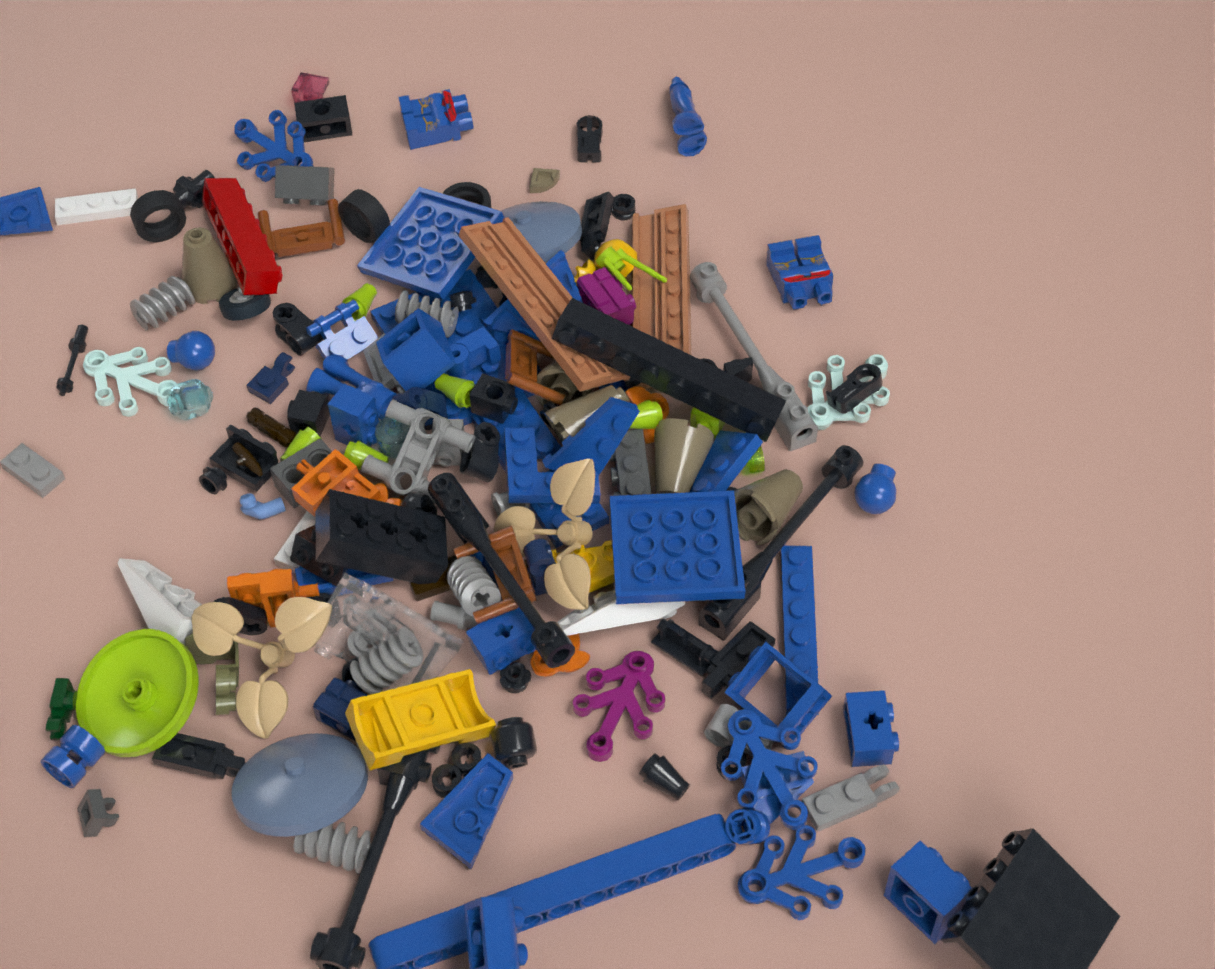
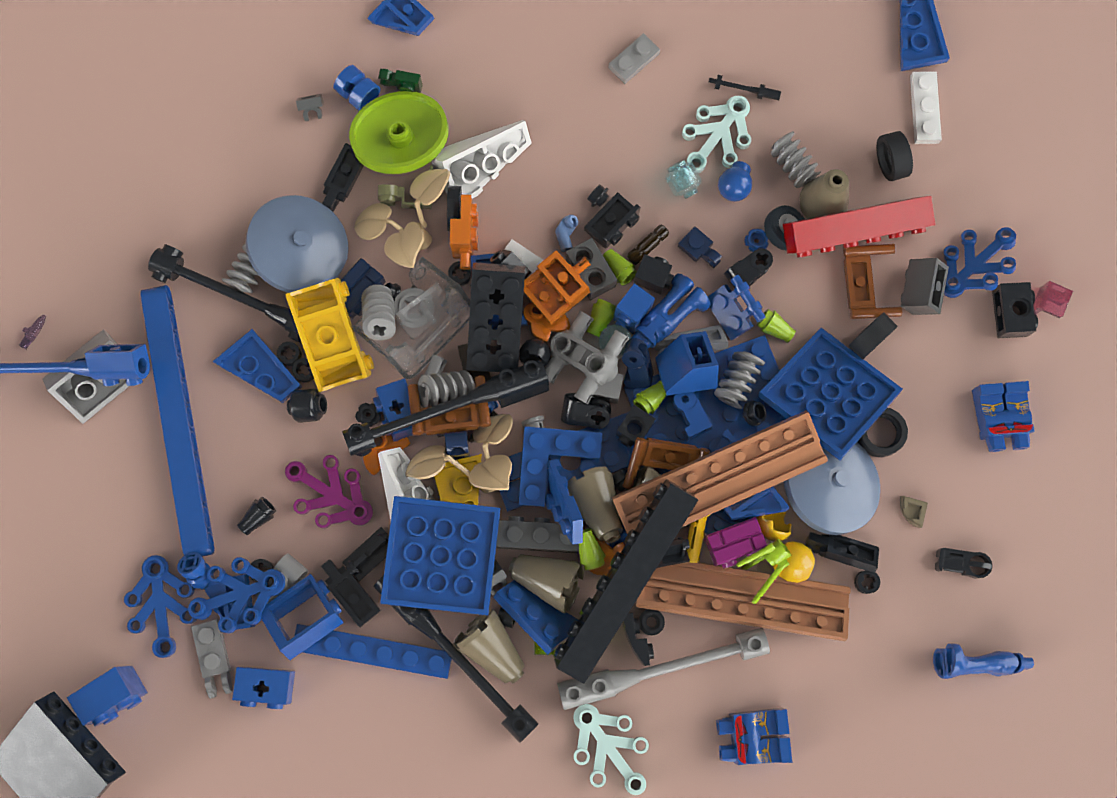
camera: 95 degrees right, 25 degrees up
(191, 190) = (931, 185): black axle -> none
(246, 459) = (607, 221): dark brown helmet -> none
(259, 329) = (756, 234): none -> blue plate
(854, 391) = (598, 752): black piece -> none
(876, 490) = (489, 748): blue piece -> none

